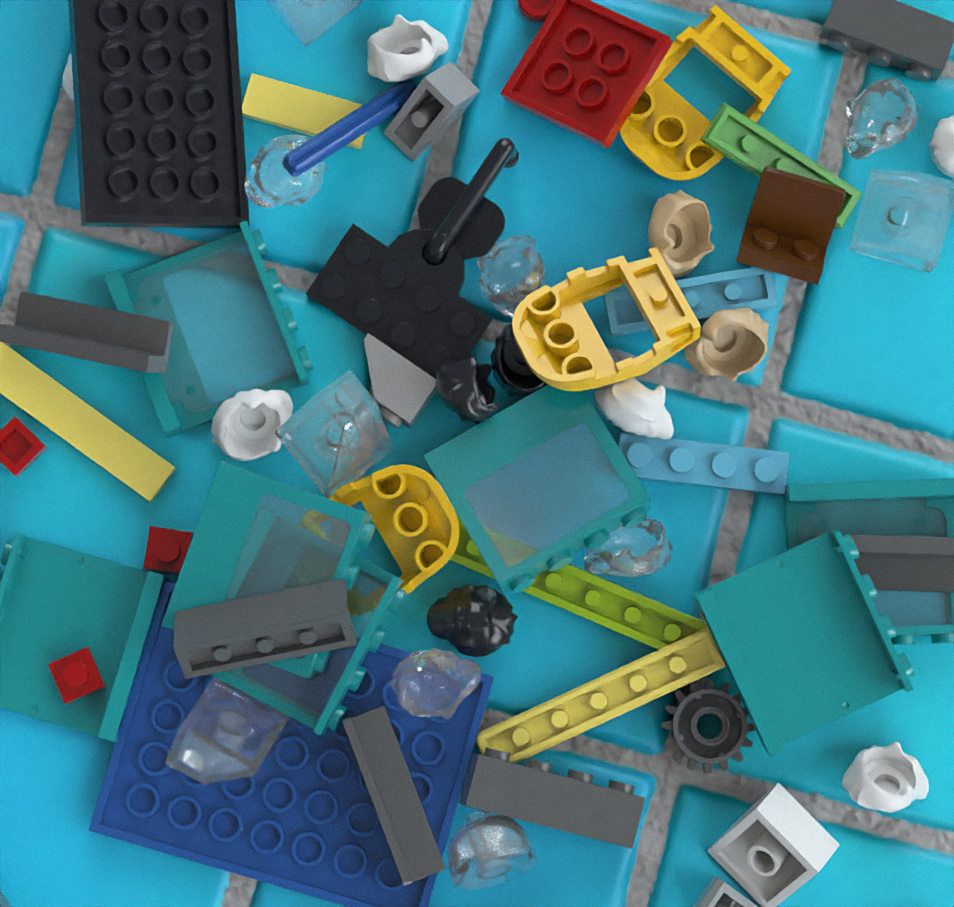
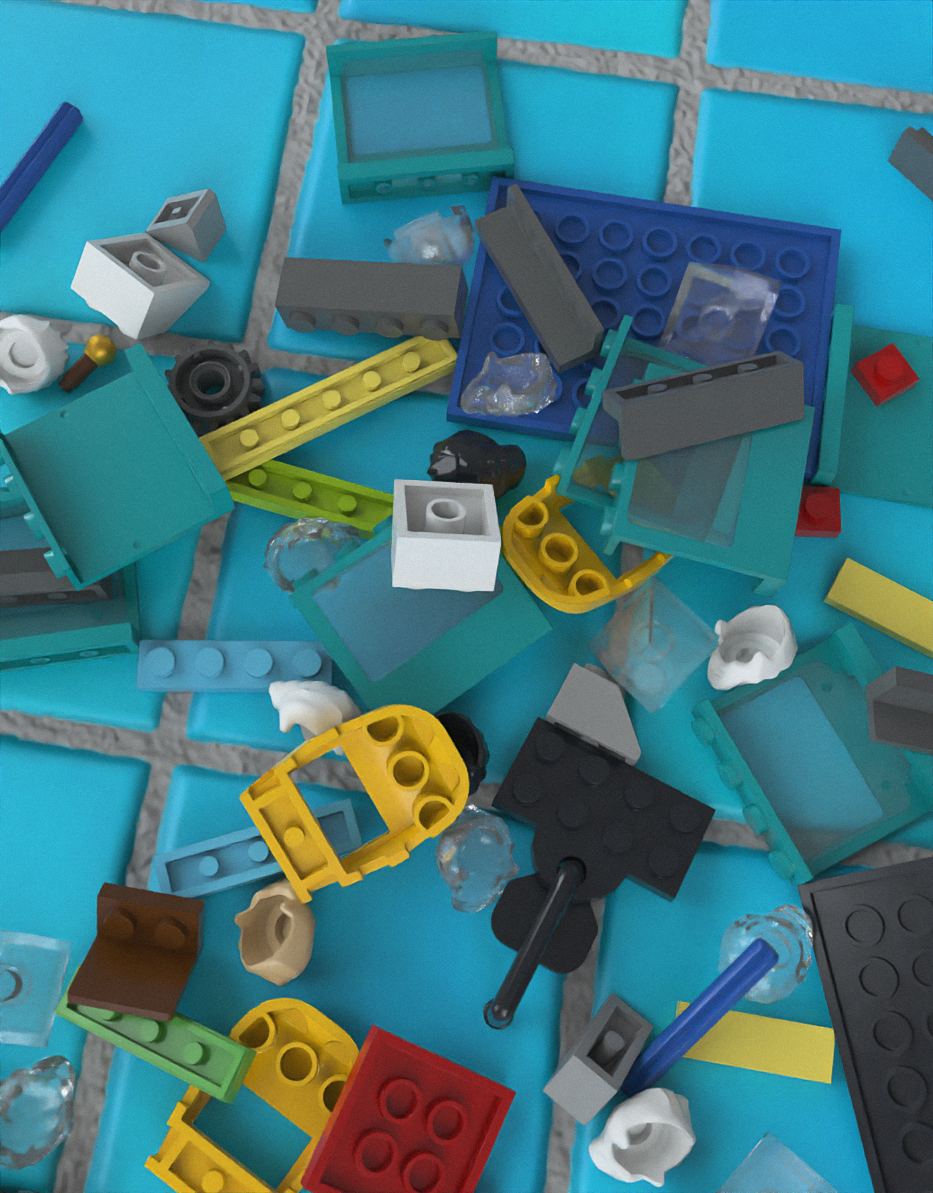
camera: 175 degrees right, 10 degrees down
(466, 387) = (512, 709): black hair -> none
(510, 532) = (444, 536): none -> white slope
(729, 344) = (205, 802): tan hair -> none
(816, 781) = (98, 352): none -> piece

